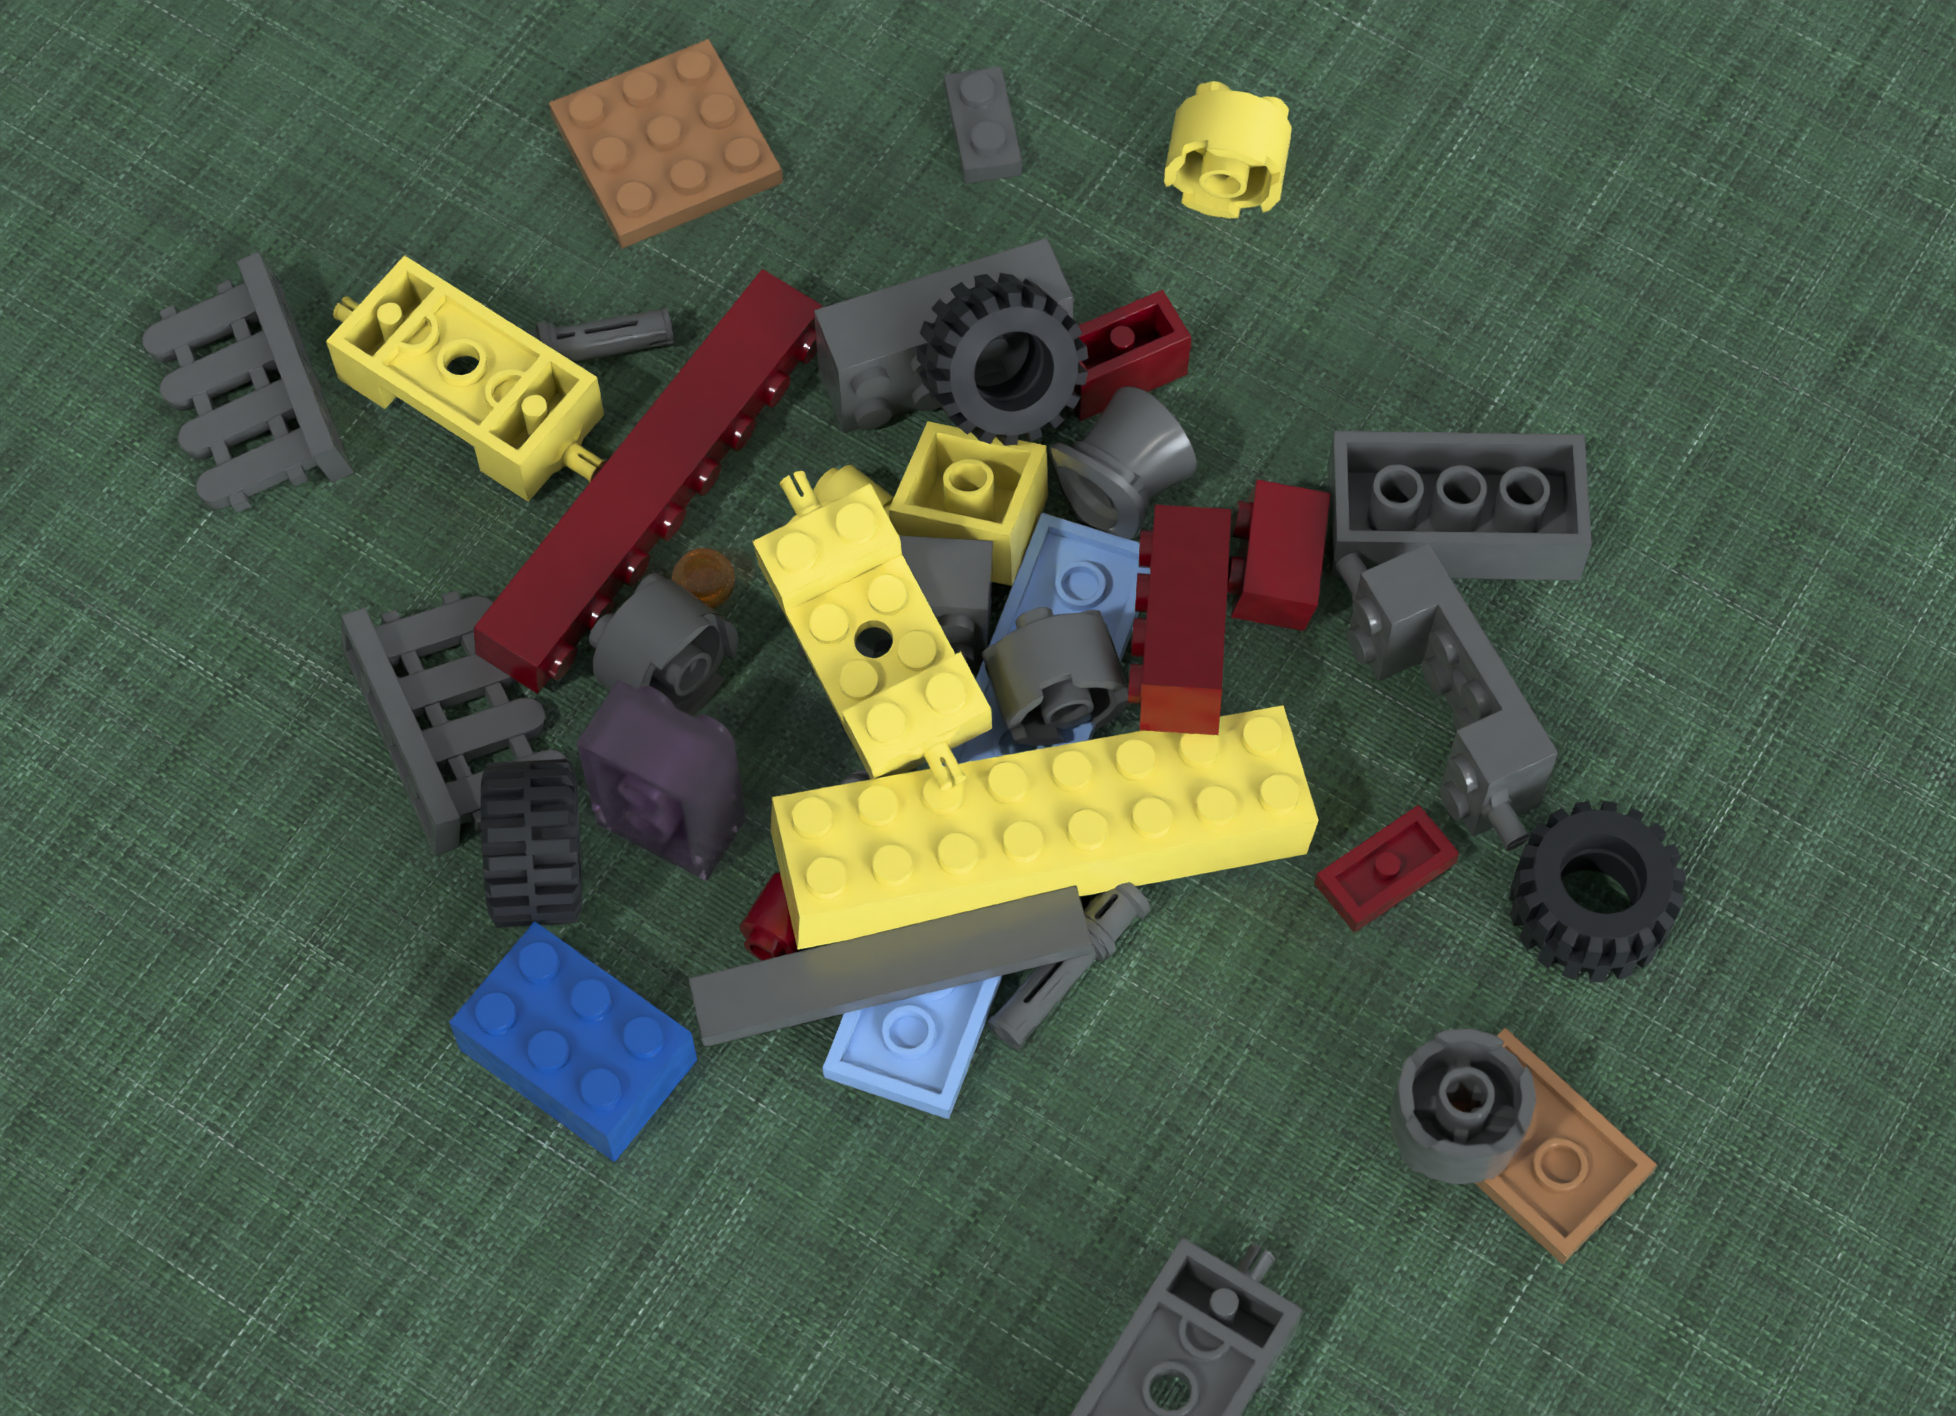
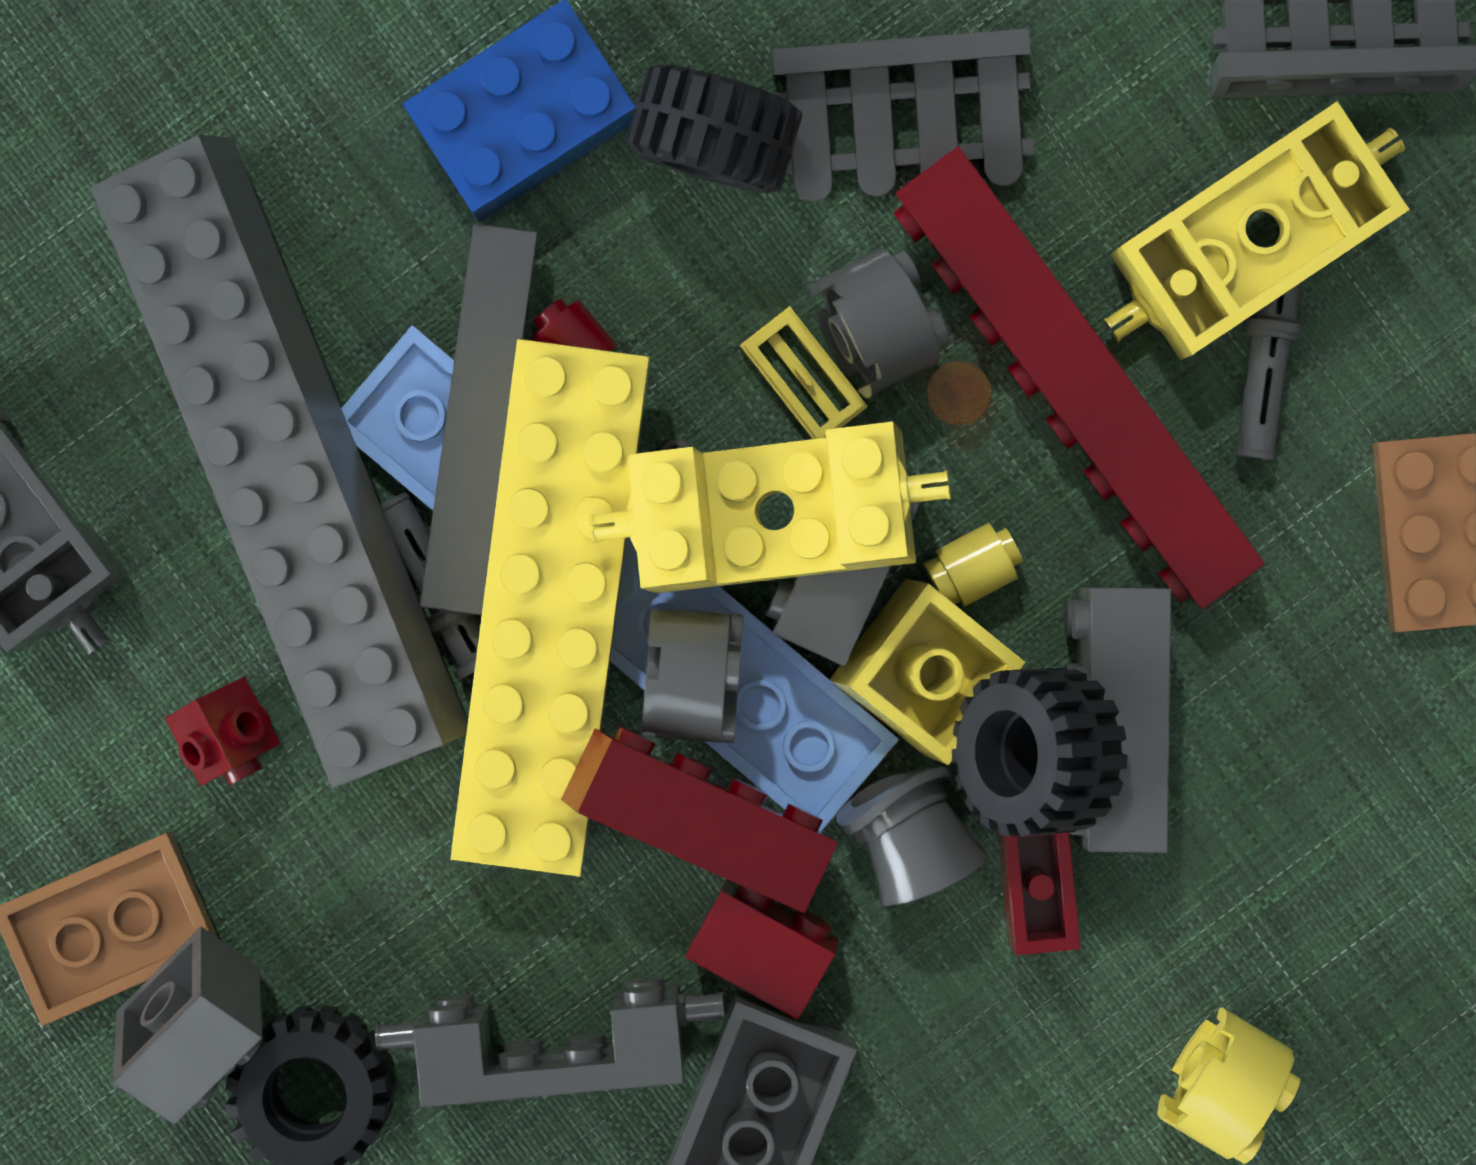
camera: 115 degrees right, 25 degrees up
(663, 778) = (725, 268): clear purple brick -> none
(769, 712) = (769, 334): none -> light yellow tile
(982, 125) = (1377, 857): dark grey plate -> none
(998, 1138) = (280, 458): none -> dark grey brick
(1293, 1095) = (223, 733): none -> dark red brick
(1386, 868) = (415, 912): dark red plate -> none
(1452, 1143) = (100, 882): dark grey brick -> none
(1586, 1006) = (188, 1026): none -> dark grey brick

